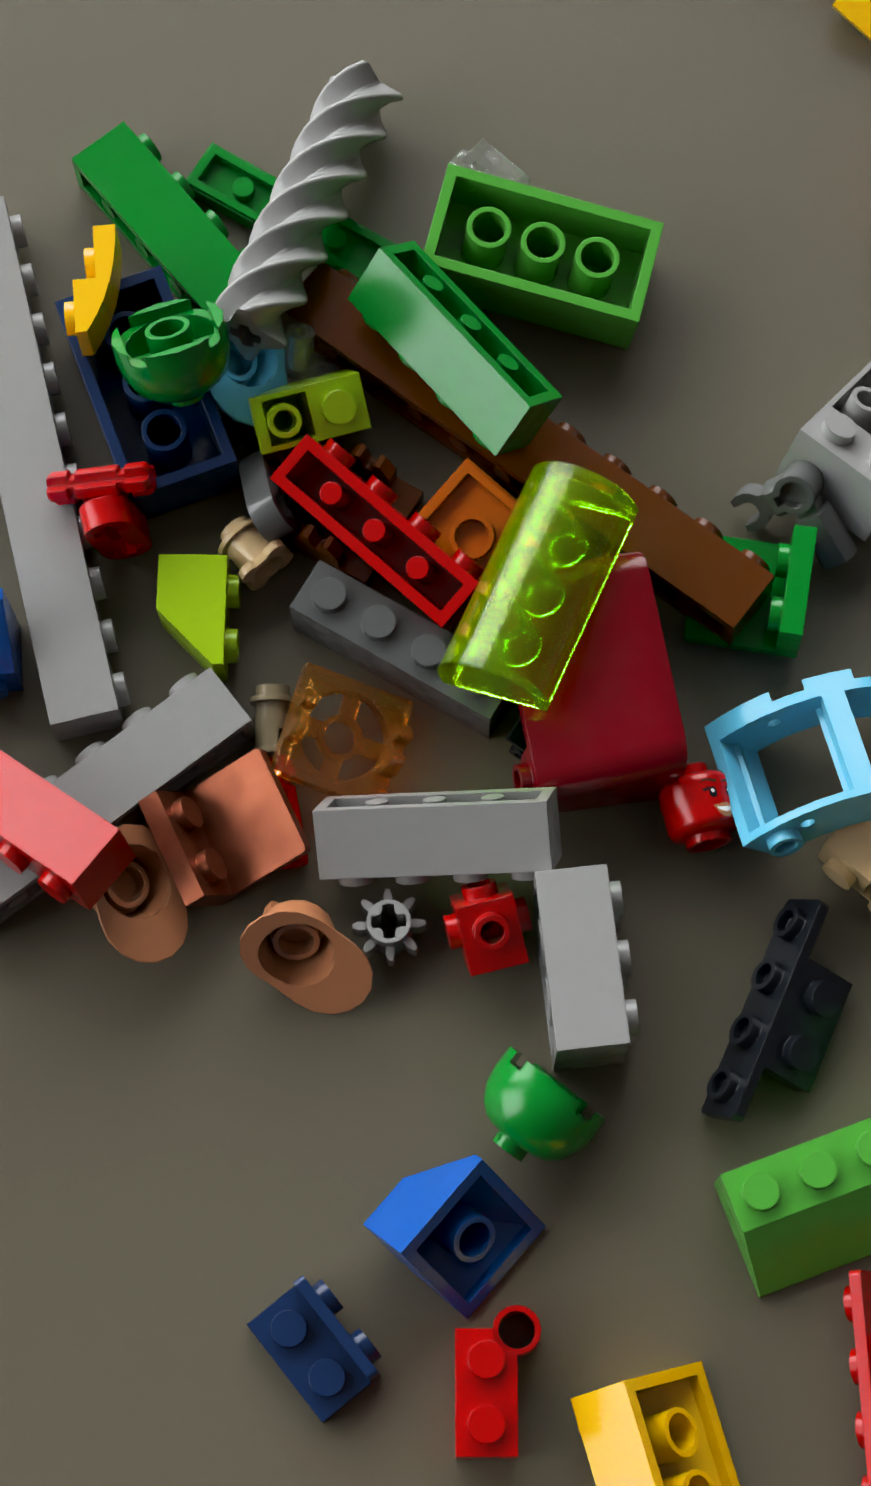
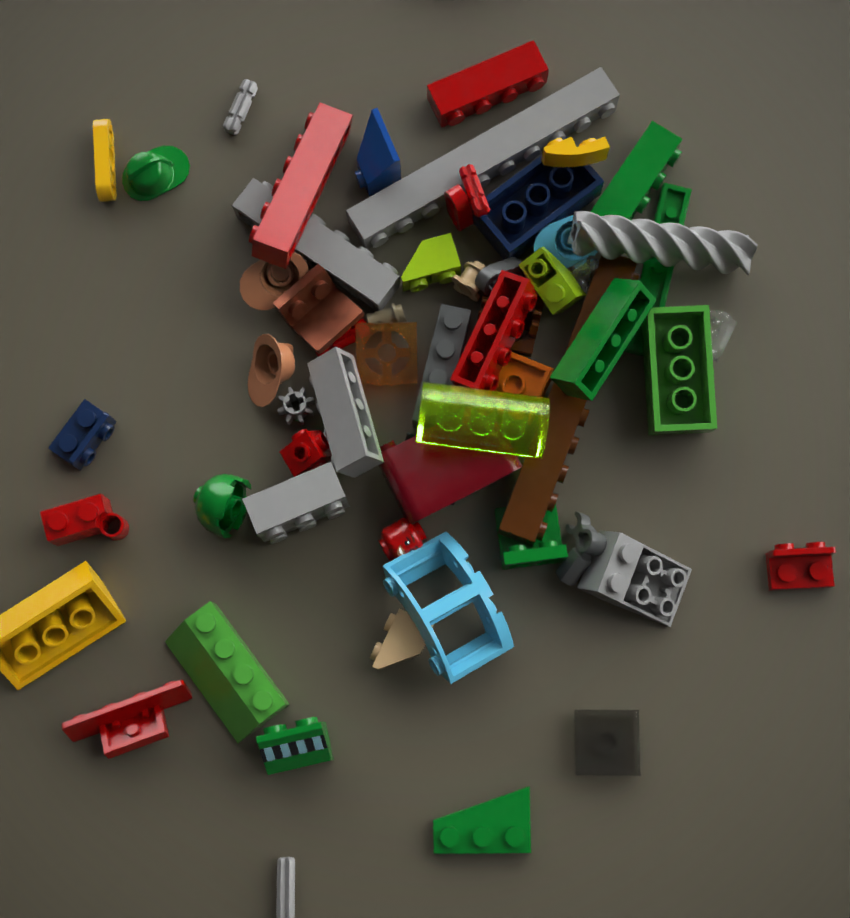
camera: 75 degrees right, 5 degrees up
(173, 351) = (550, 198): green cylinder -> none
(456, 1229) = (152, 482): blue slope -> none
(783, 1018) = (307, 615): black bracket -> none

